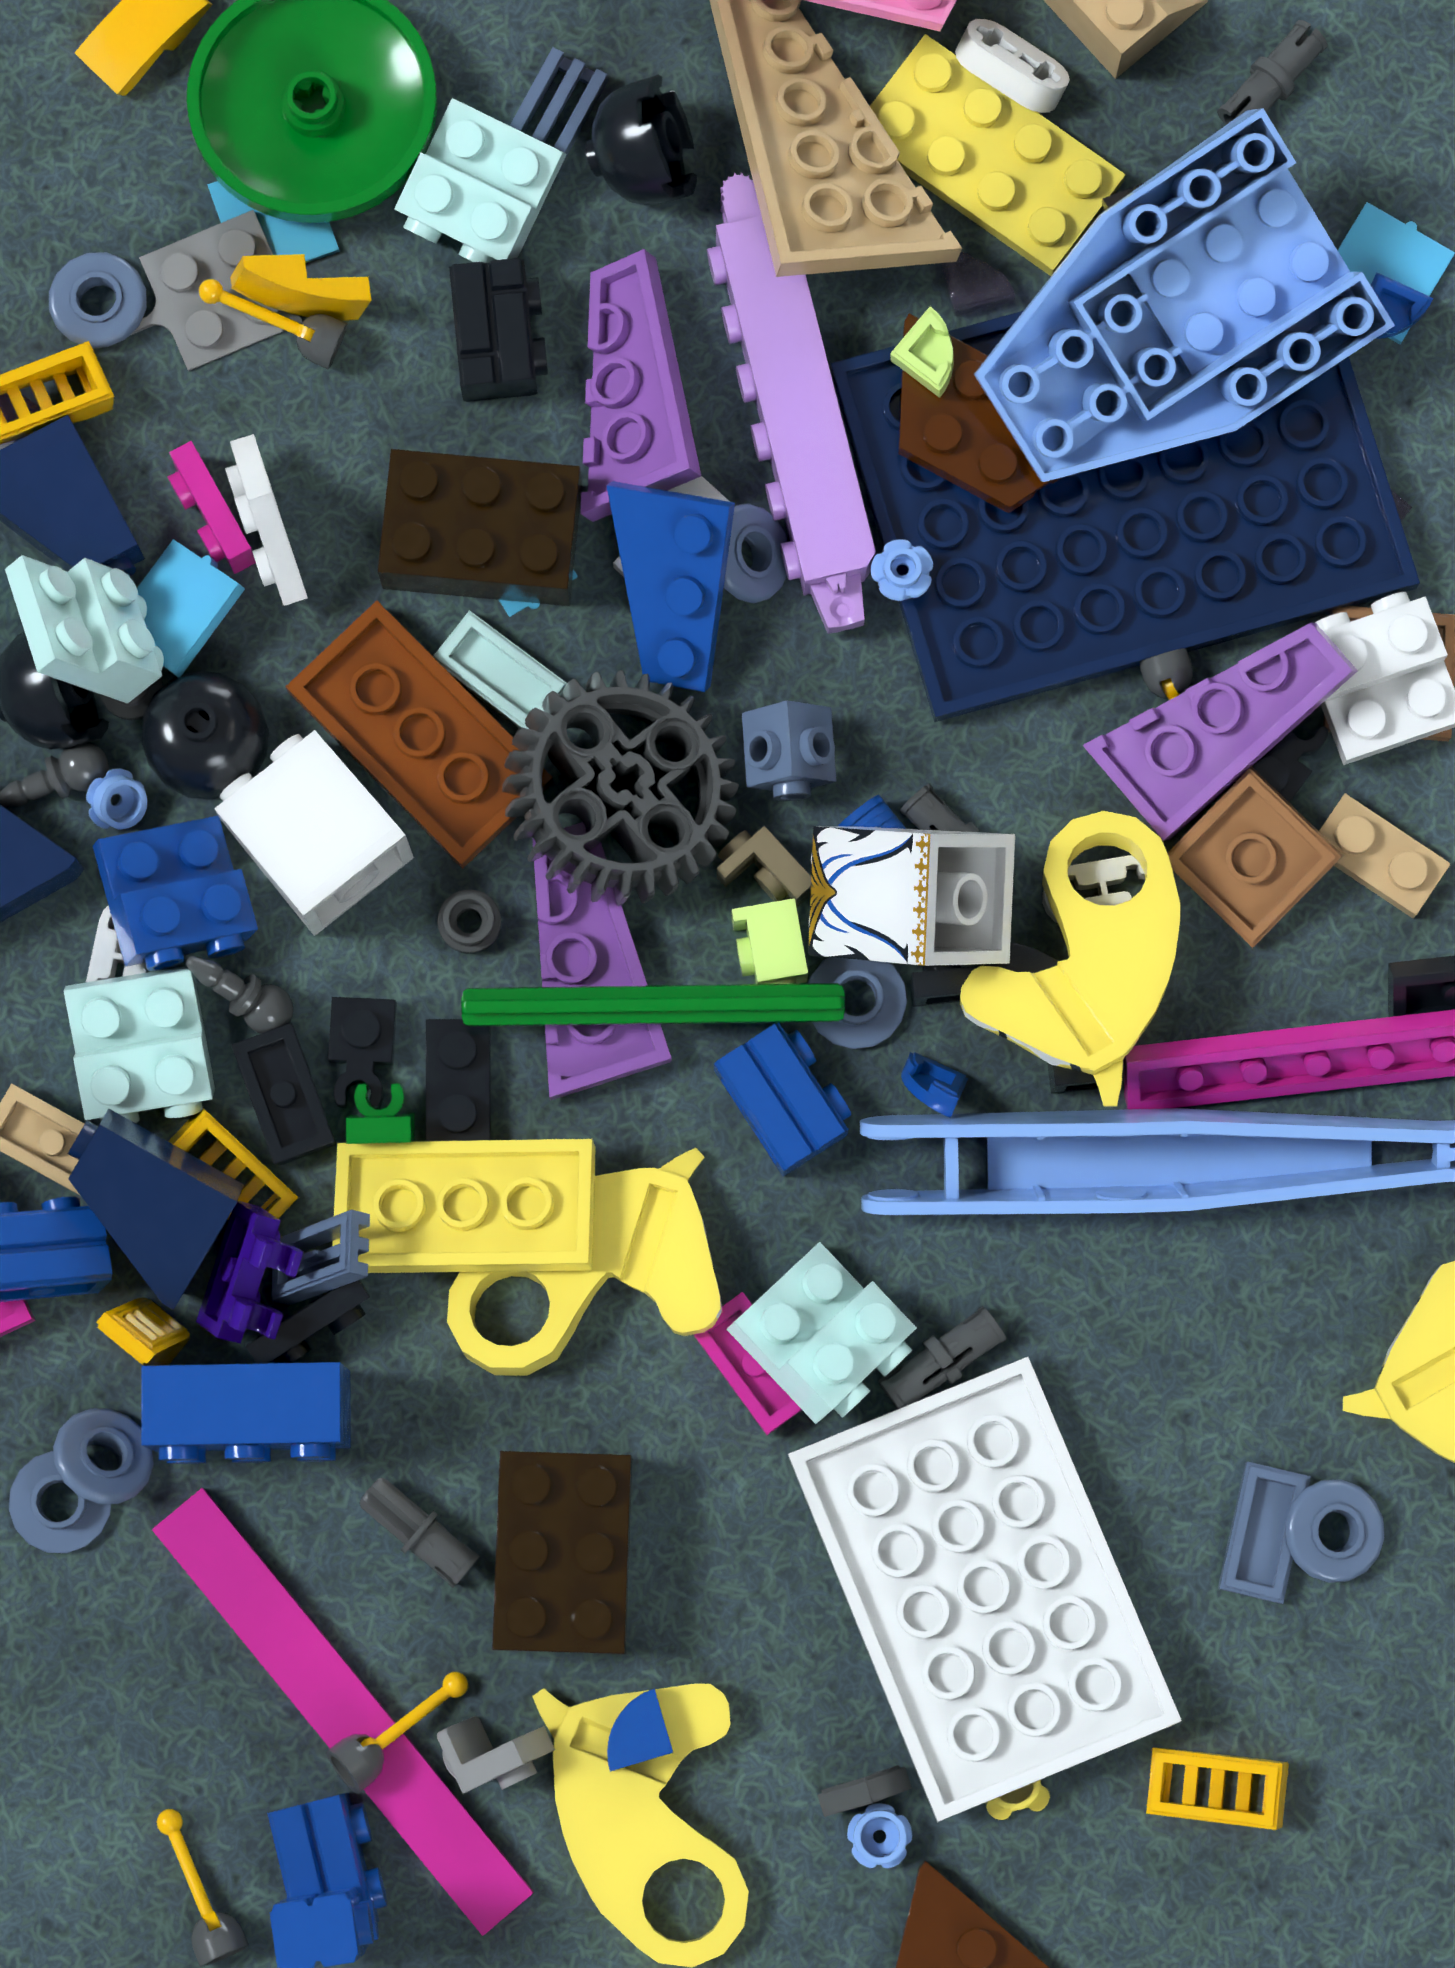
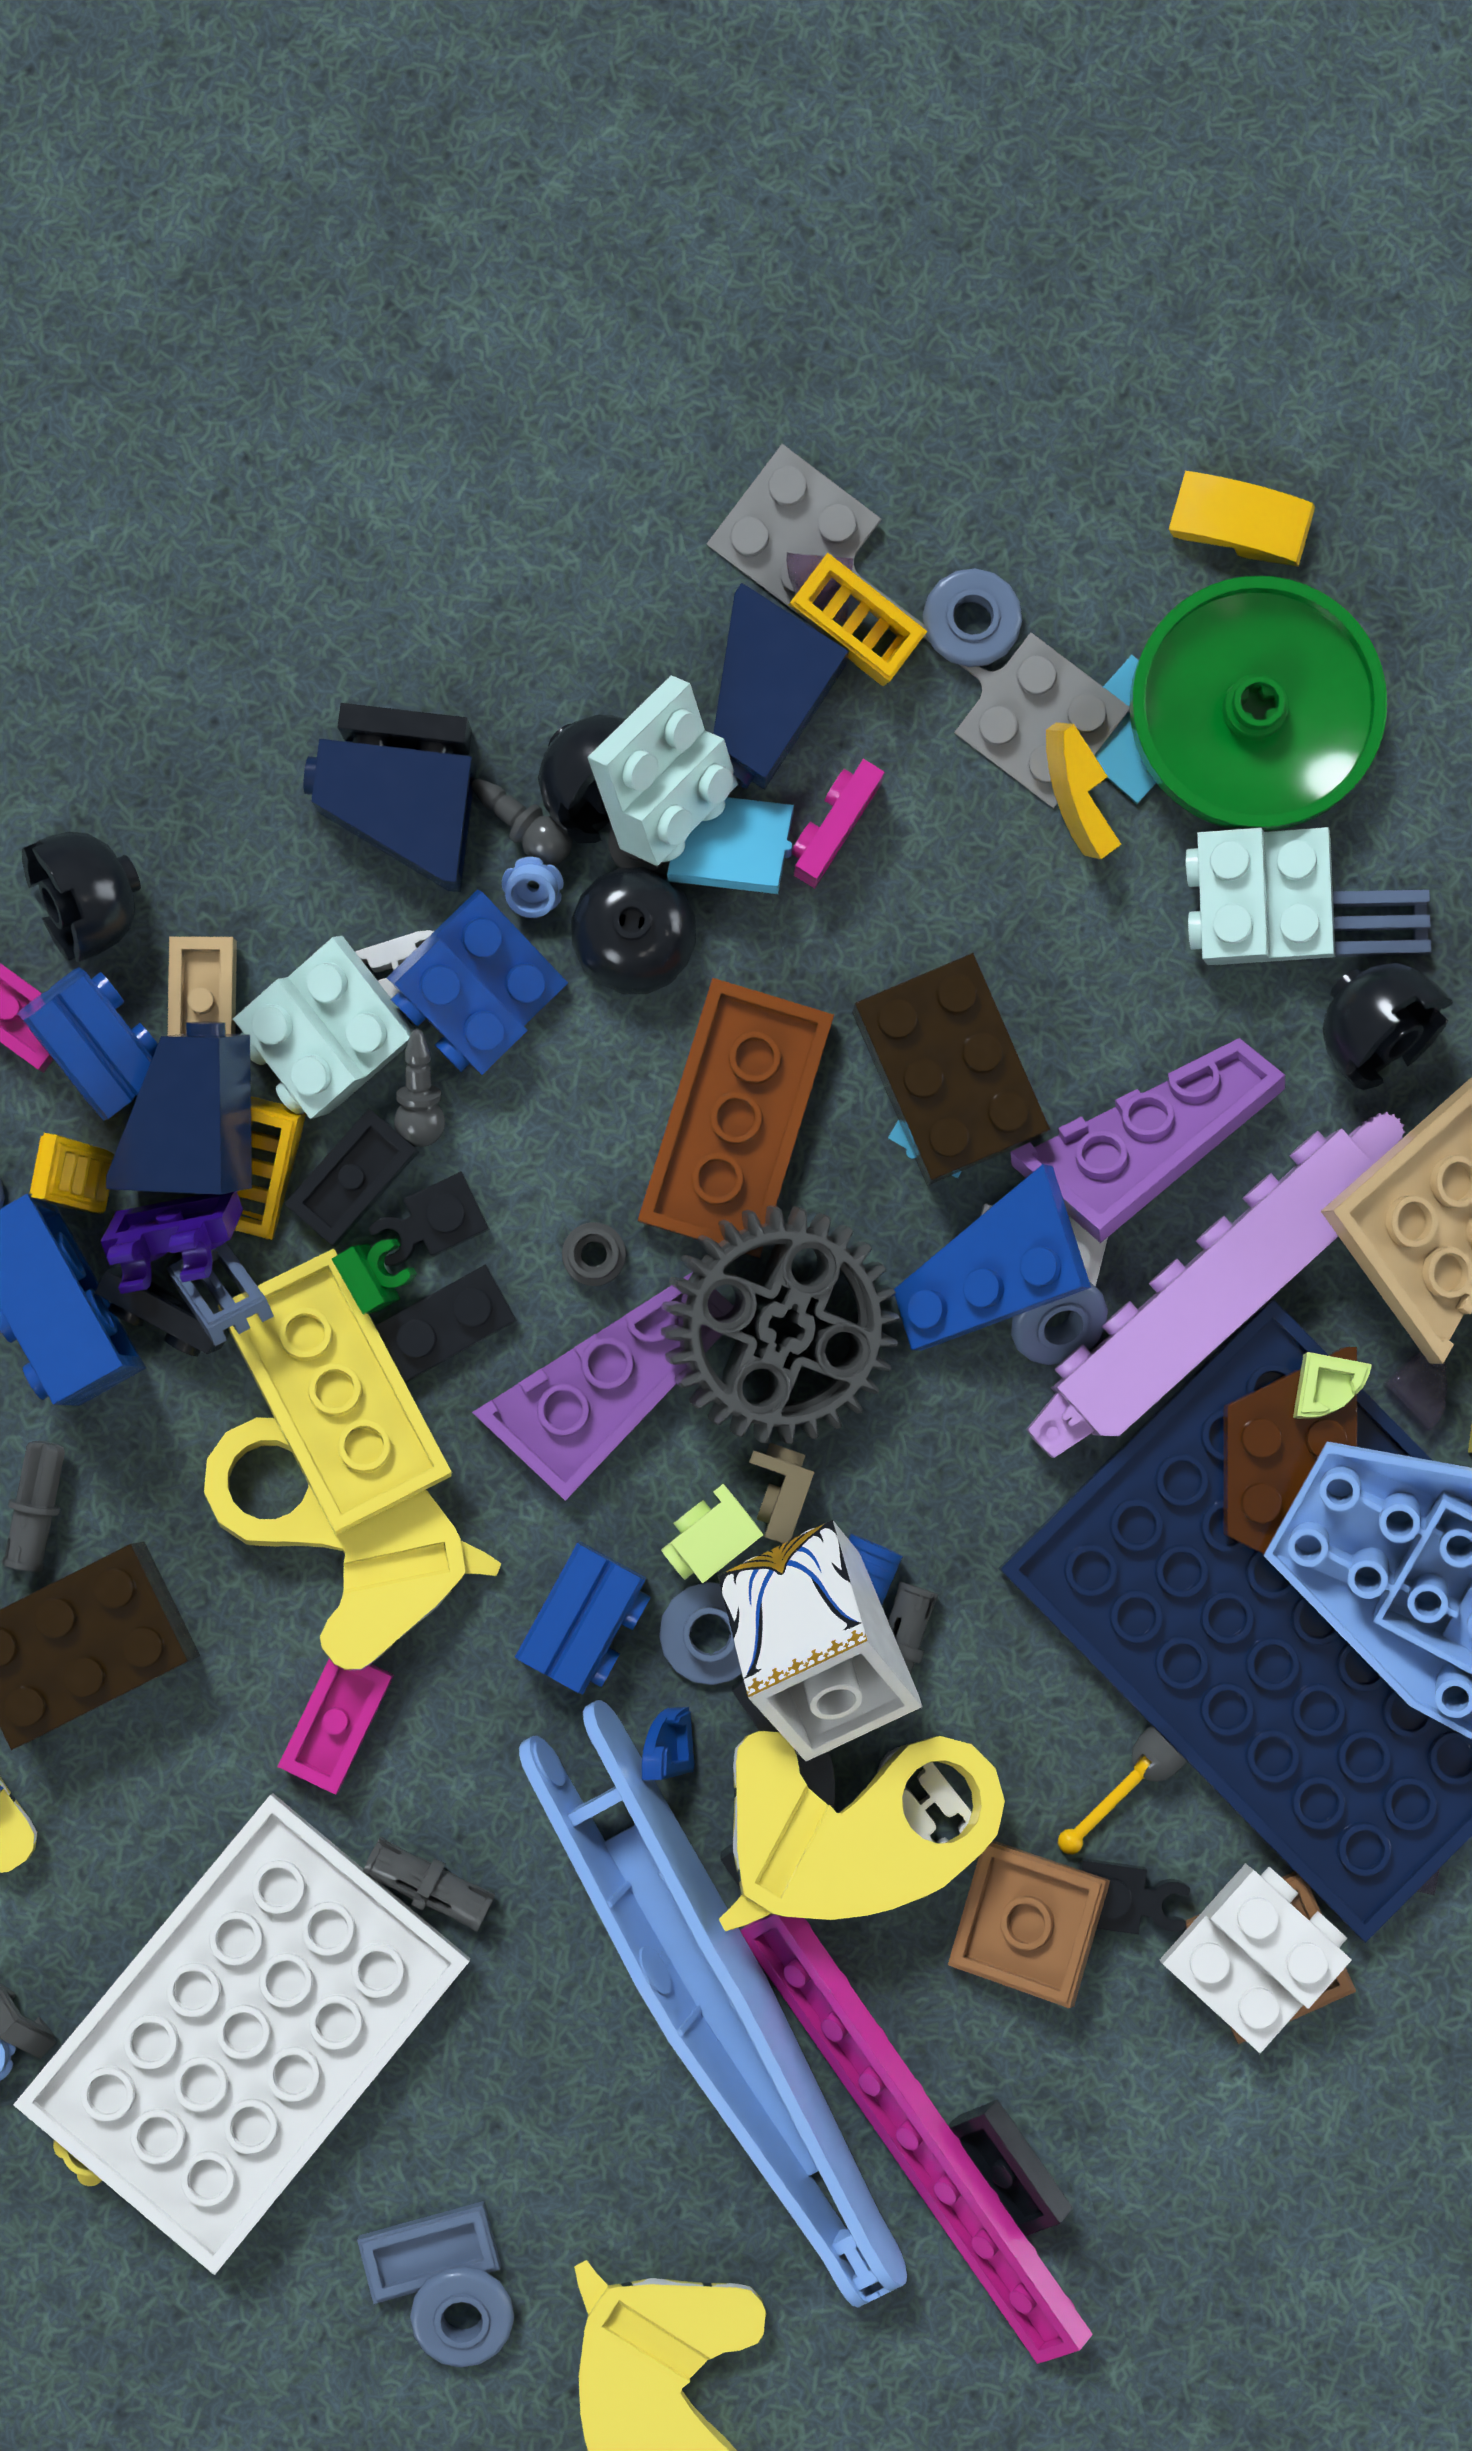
camera: 60 degrees right, 5 degrees up
(261, 514) = (850, 871): white plate -> none
(313, 830) = (595, 1072): white slope -> none
(316, 336) = (1043, 828): hinge -> none
(495, 330) = (1139, 982): black brick -> none
(496, 670) = (832, 1156): light aqua tile -> none
(653, 1004) = (600, 1461): green axle -> none
(789, 749) = (898, 1455): sand blue brick -> none
(823, 1334) = (390, 1770): light aqua plate -> none
(898, 586) = (1098, 1466): light blue plate -> none
(1205, 739) = (1116, 1827): medium lavender wing -> none
(1273, 1798) = (212, 2342): yellow slope -> none
(1383, 856) = (1096, 2038): tan plate -> none

